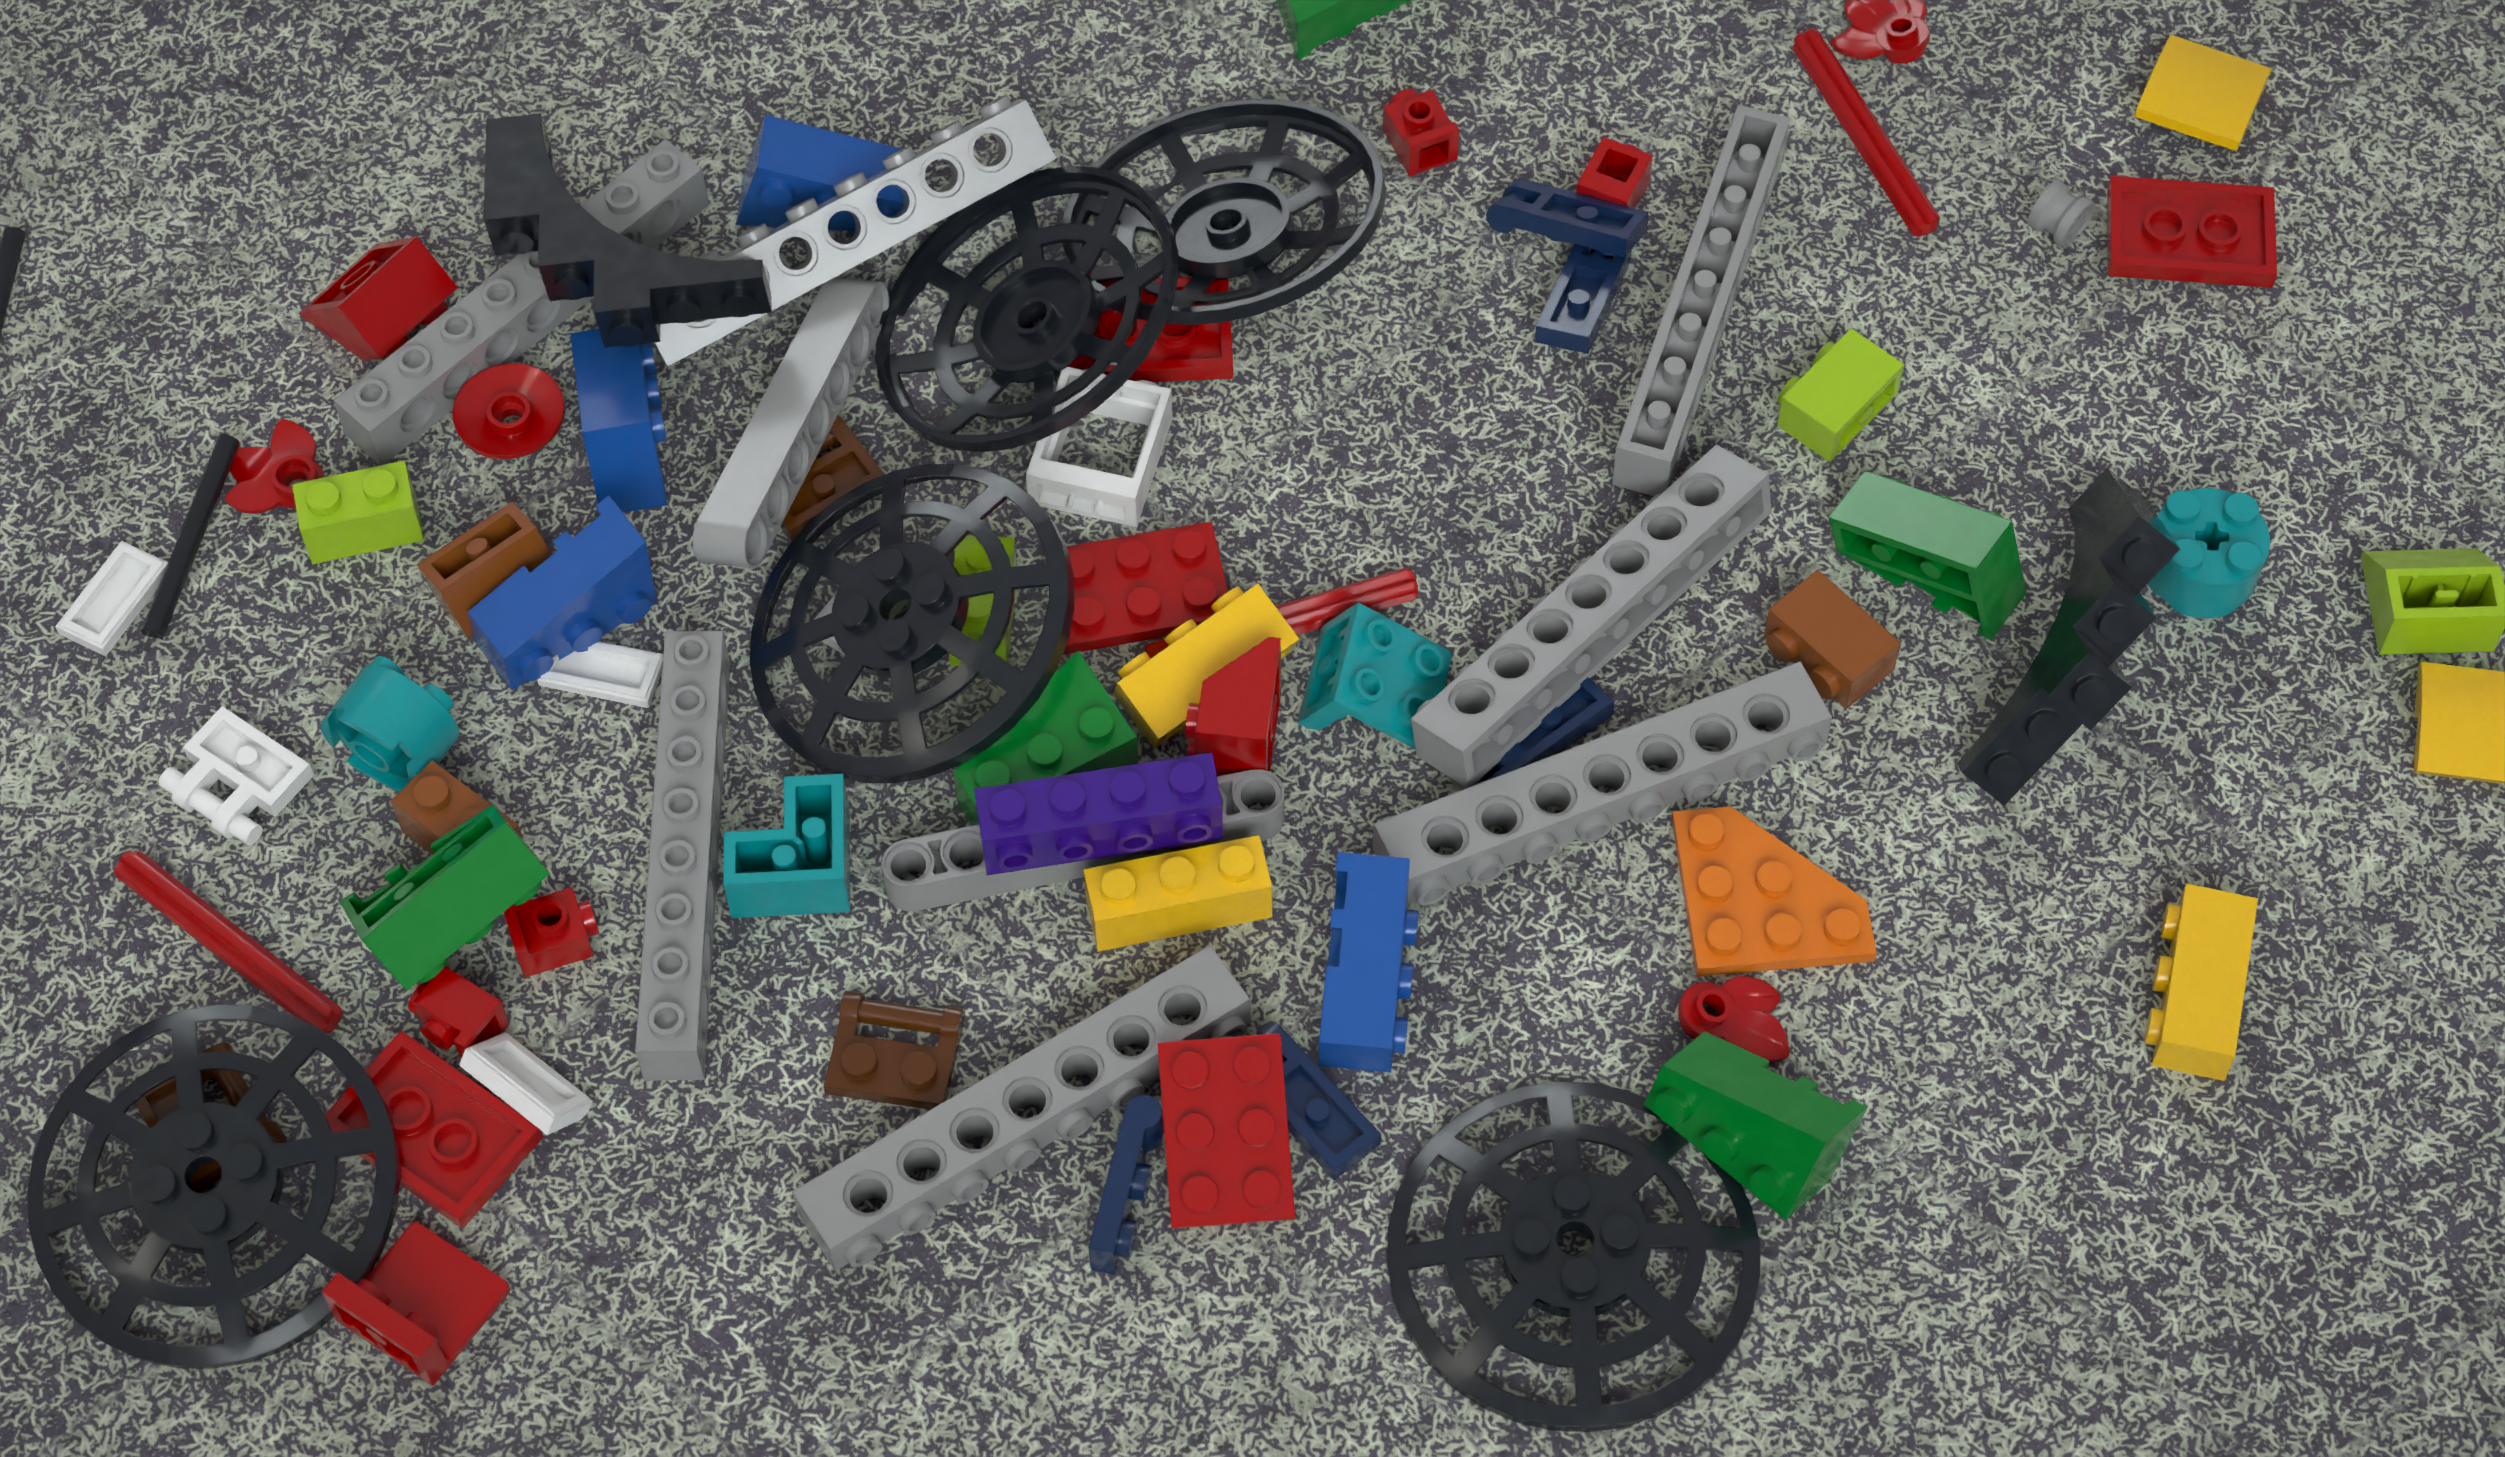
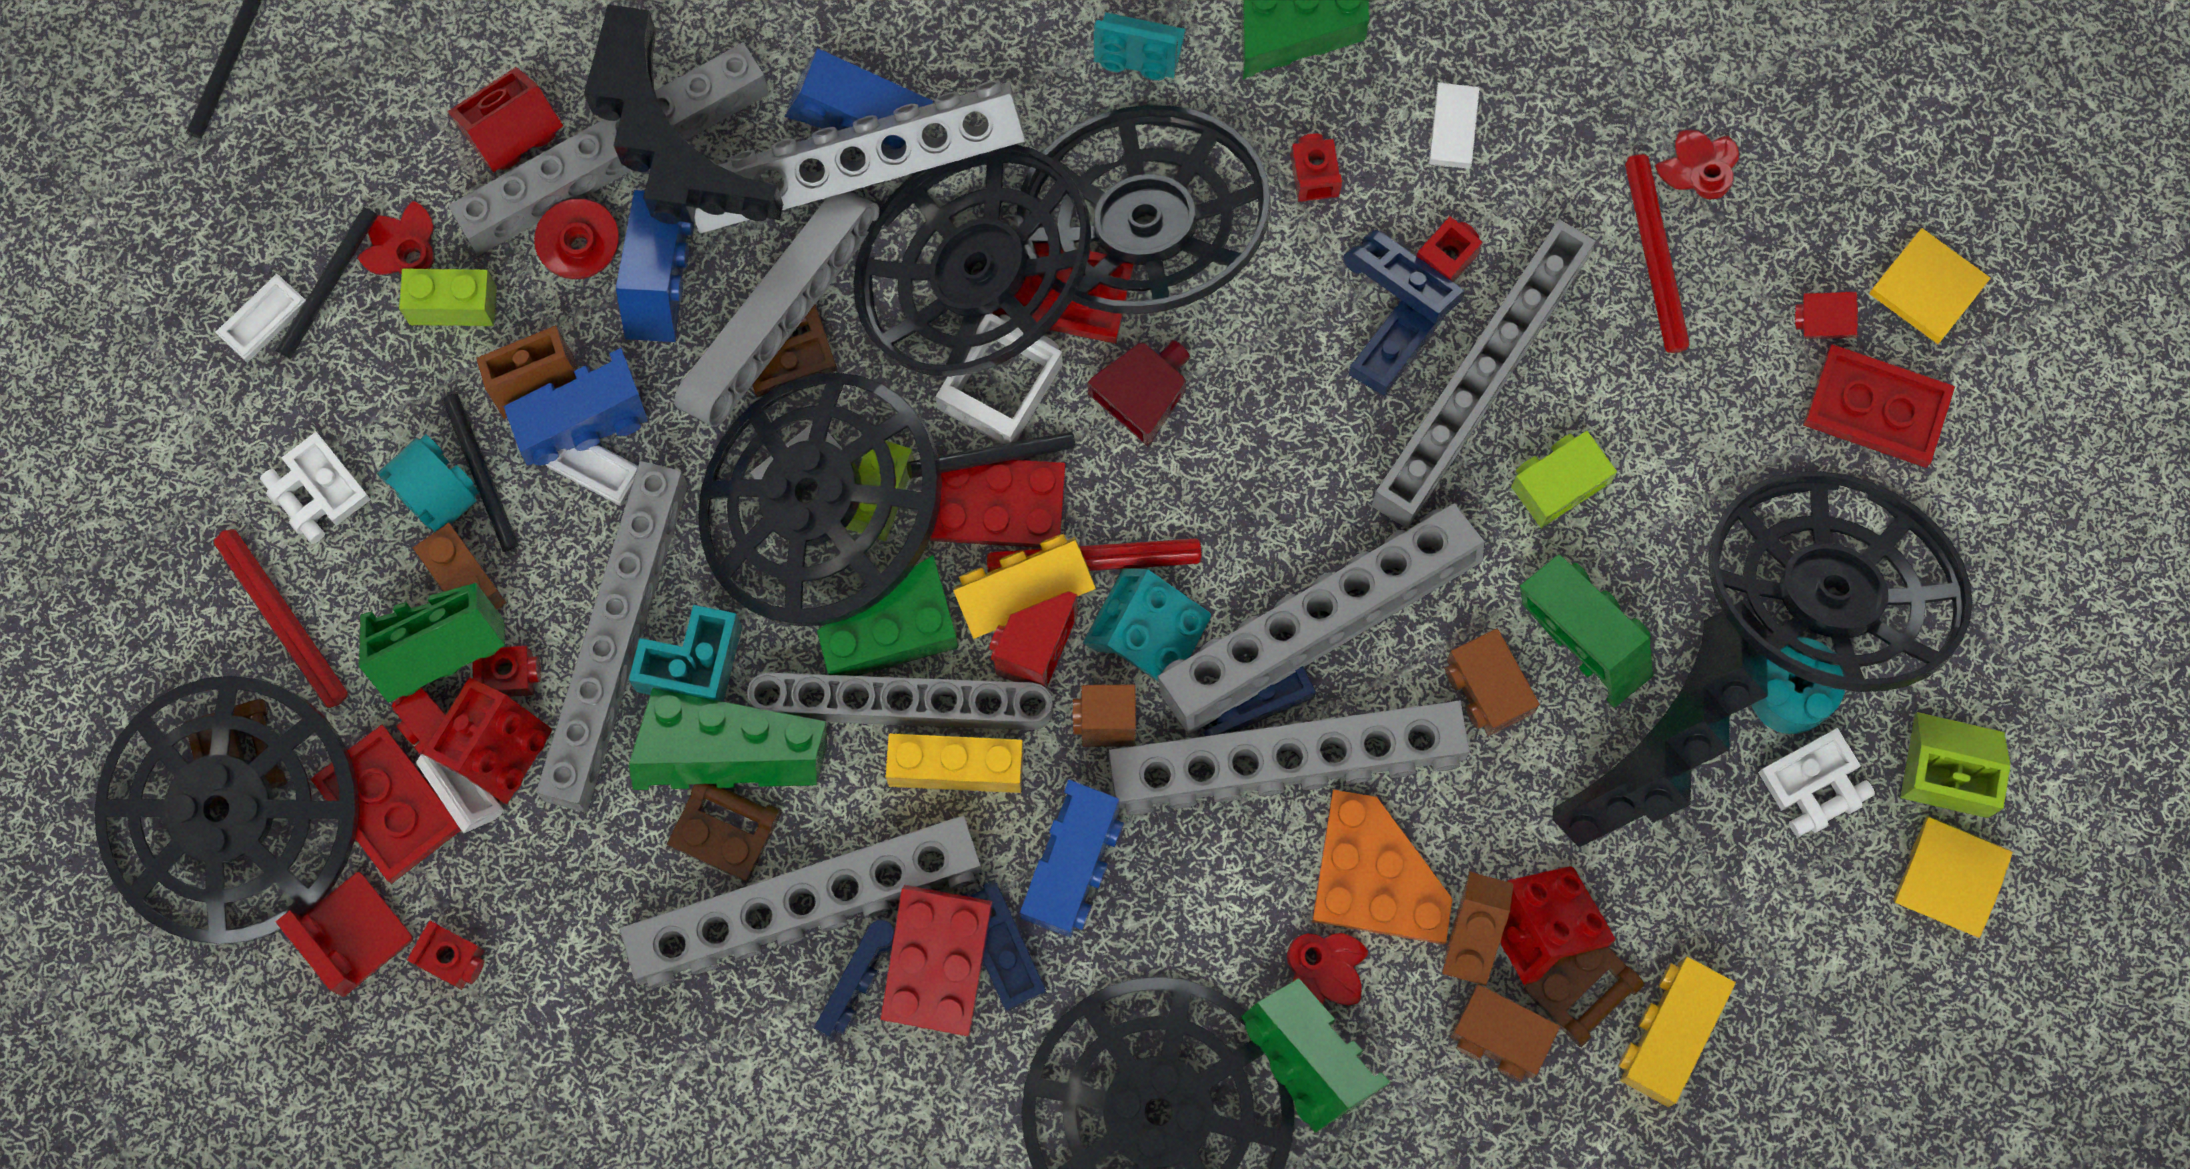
camera: 15 degrees right, 15 degrees up
(470, 731) = (480, 472): none -> black bar
(553, 1002) = (488, 740): none -> red bracket
(568, 1313) = (429, 948): none -> red brick
(871, 940) = (723, 744): none -> green wedge
(1099, 813) = (908, 698): dark purple brick -> none
(1124, 525) = (998, 453): none -> black bar
(1158, 44) = (1137, 46): none -> teal bracket
(1281, 415) = (1142, 388): none -> dark red torso
(1357, 782) = (1105, 715): none -> dark orange brick
(1572, 52) = (1454, 125): none -> white tile
(1913, 914) = (1477, 928): none -> dark orange brick
(1987, 892) = (1551, 920): none -> red bracket
(1987, 1037) = (1504, 1033): none -> dark orange brick
(2050, 952) = (1571, 979): none -> reddish brown plate
(2061, 213) = (1783, 366): light grey wheel -> none
(2096, 144) = (1828, 315): none -> red brick
(2218, 431) = (1850, 572): none -> black dish
(2258, 645) = (1811, 769): none -> white plate

